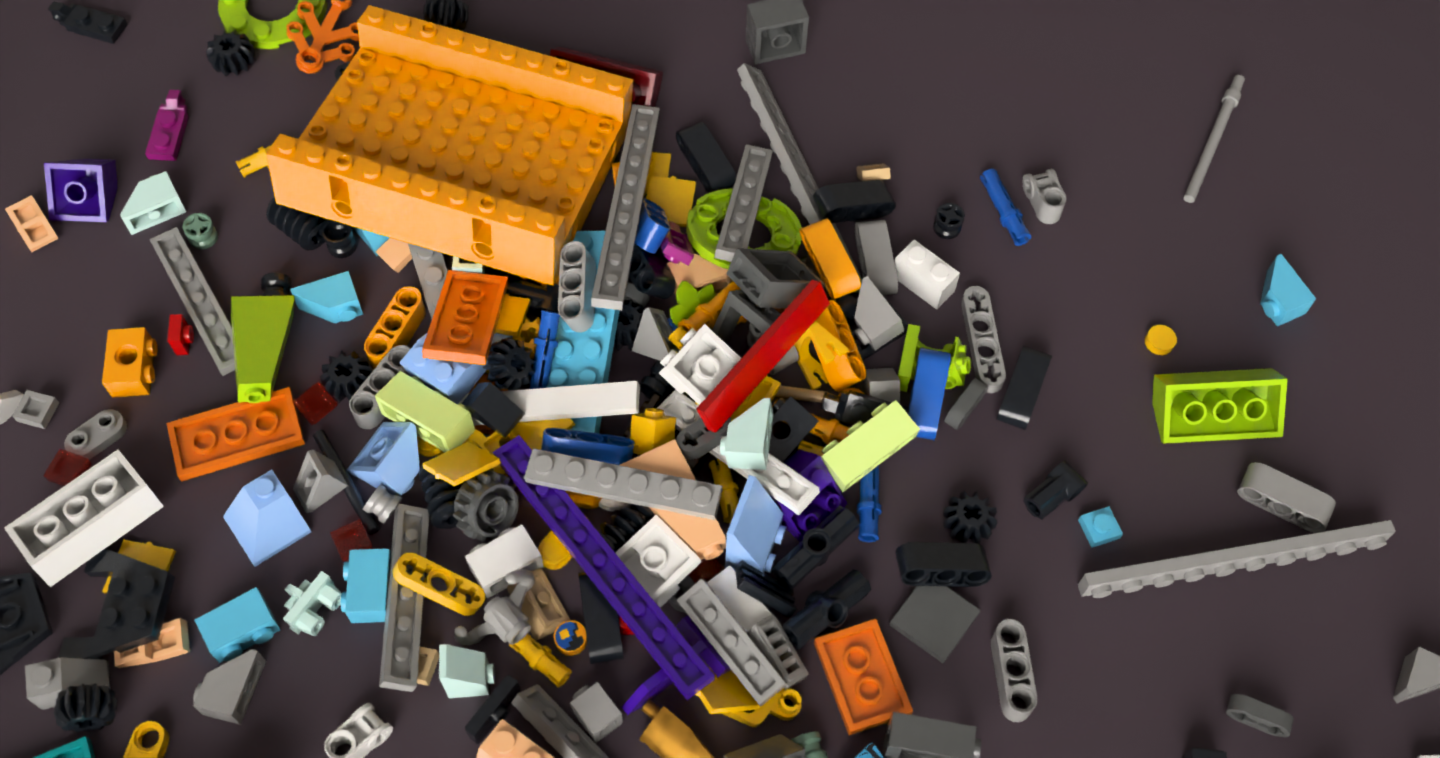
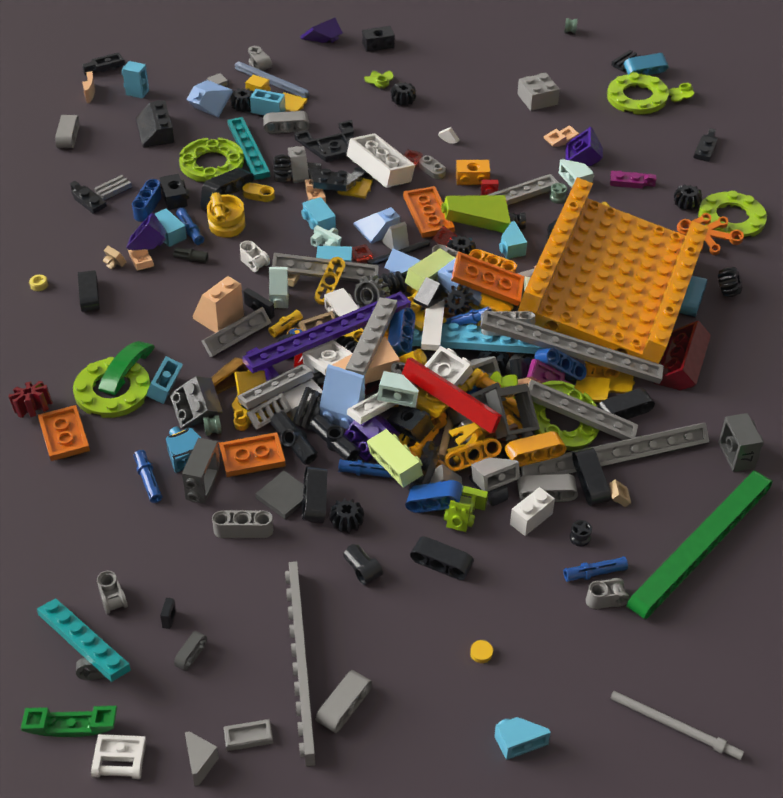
camera: 95 degrees right, 15 degrees down
(35, 409) = (446, 145): light grey plate -> none
(229, 688) = (285, 214): light grey slope -> none
(382, 503) = (381, 260): light grey wheel -> none
(461, 463) = (394, 279): yellow piece -> none
(503, 614) = (307, 300): light grey piece -> none
(596, 711) = (249, 339): light grey brick -> none
(944, 91) = (699, 545): none -> green beam
(966, 404) = (430, 524): dark grey beam -> none
(983, 338) = (483, 546): light grey beam -> none
(1100, 527) = (335, 589): medium azure plate -> none
(1219, 405) = (422, 672): lime slope -> none
(1364, 620) = (248, 735): none -> light grey tile

